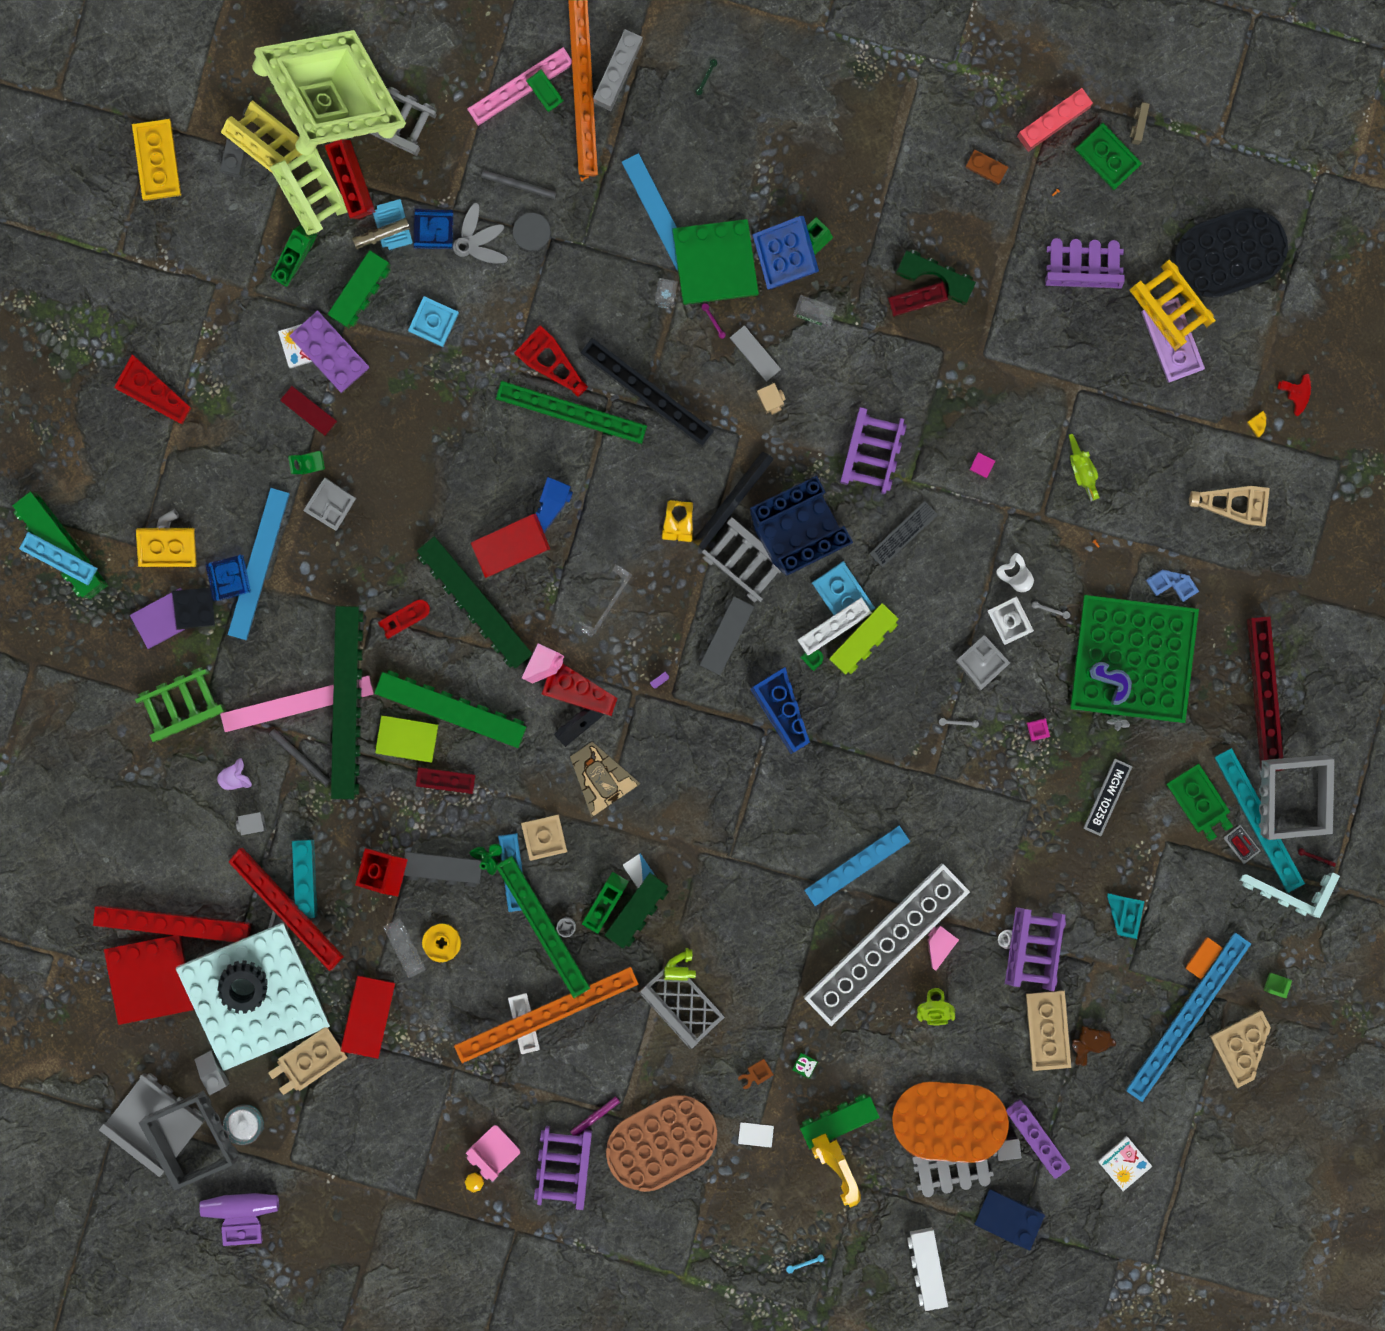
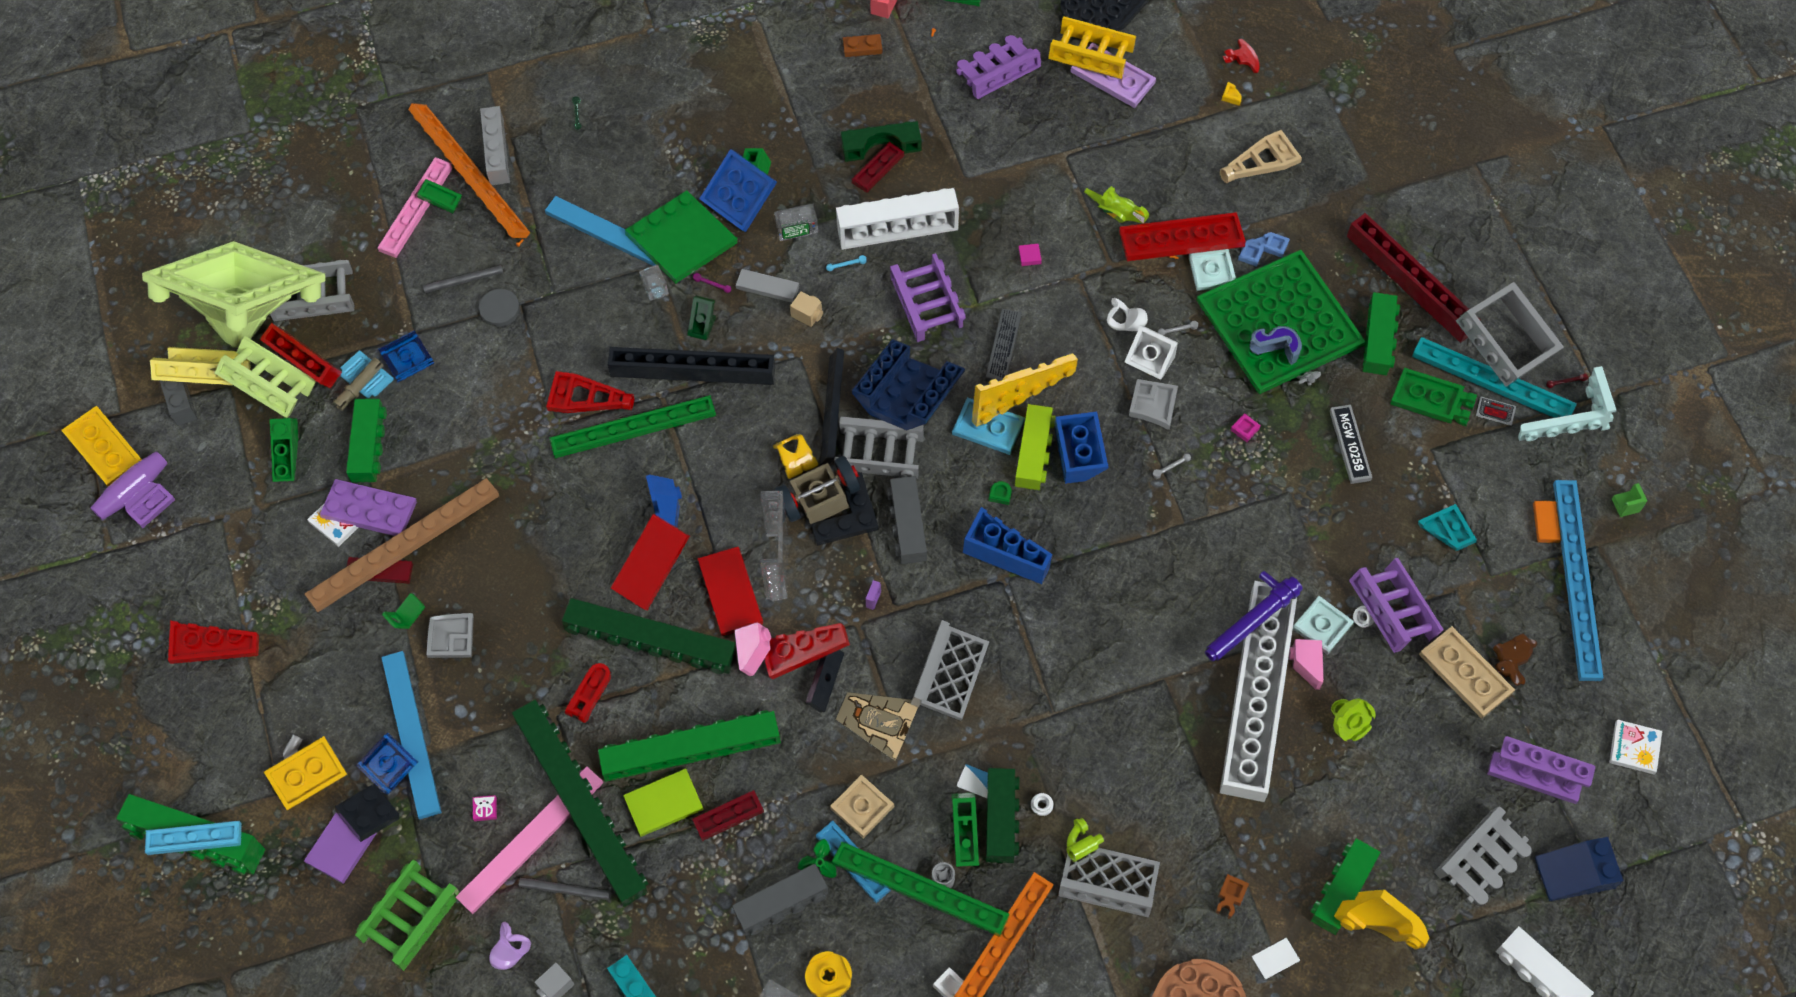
camera: 30 degrees left, 25 degrees down
(160, 218) = (136, 492): none -> medium lavender plate
(278, 658) = (485, 808): none -> tile
(337, 403) = (401, 545): none -> medium nougat plate
(381, 872) = (720, 940): red brick -> none
(433, 321) = (453, 426): medium azure plate -> none
(472, 242) = (444, 349): light grey plant -> none
(557, 603) = (730, 590): none -> red tile
(667, 925) = (1041, 797): none -> white plate
(668, 762) = (931, 669): none -> light grey fence
(672, 571) = (820, 491): none -> dark tan brick
(682, 352) = (701, 317): none -> dark green slope
(692, 610) = (859, 522): none -> black plate
(805, 1065) = (1271, 857): tile -> none
(834, 626) = (1000, 452): white tile -> none
(846, 378) = (862, 260): none -> medium azure hinge
(857, 865) = (1176, 643): dark azure plate -> none
(883, 587) = (1017, 387): none -> yellow wing
(896, 366) = (897, 218): none -> white brick
(897, 665) = (1080, 446): none -> blue slope
(949, 891) = (1278, 598): none -> dark purple cylinder
(950, 1122) = (1449, 812): orange plate -> none
(973, 924) = (1323, 623): none -> light aqua tile
(1009, 1149) = (1520, 804): light grey brick -> none
(1113, 532) = (1182, 236): none -> red plate
(1117, 576) = (1211, 269): none -> light aqua tile
(1202, 723) = (1380, 334): none -> green brick
(1242, 1046) = (1646, 573): tan plate -> none

